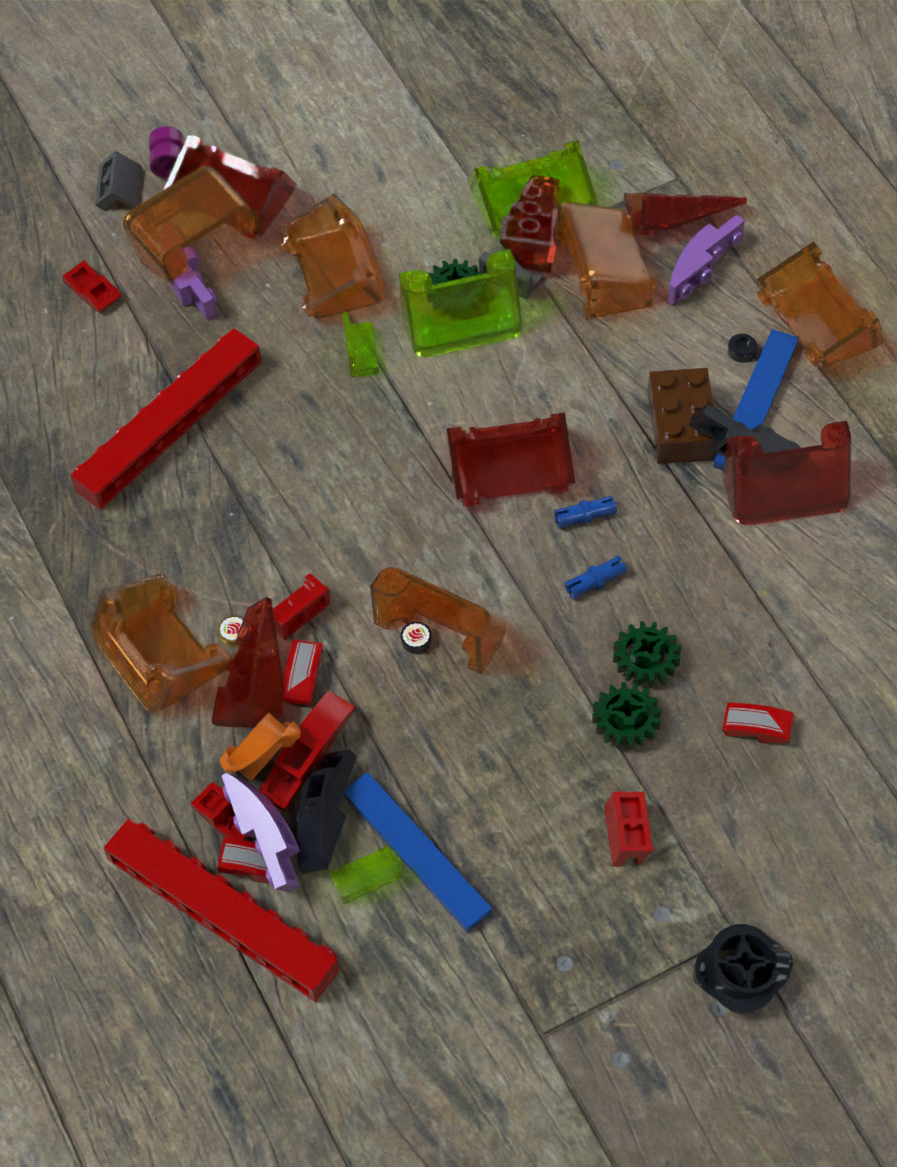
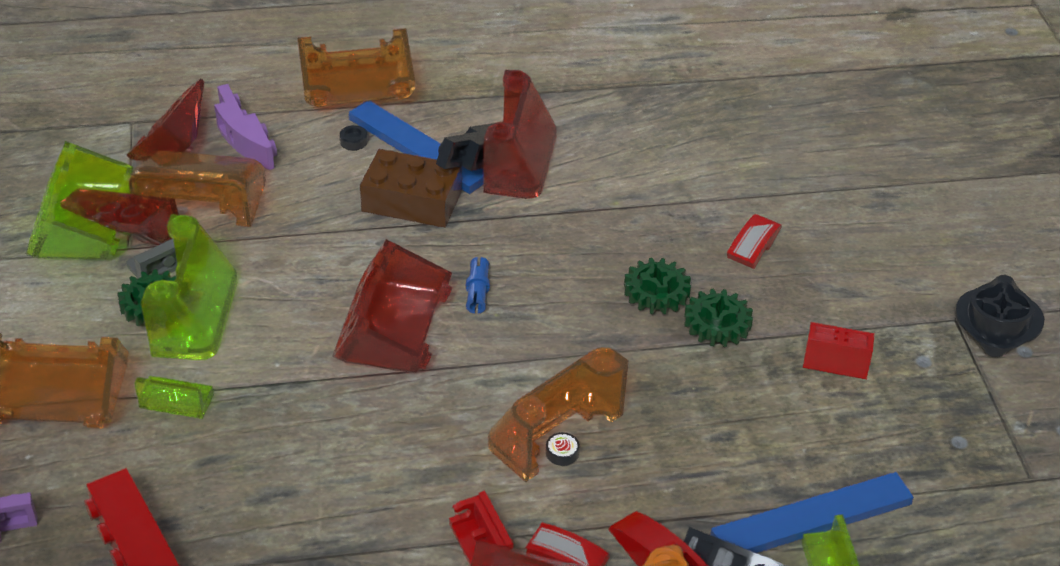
camera: 75 degrees left, 15 degrees down
(595, 577) = (555, 299): blue pin -> none

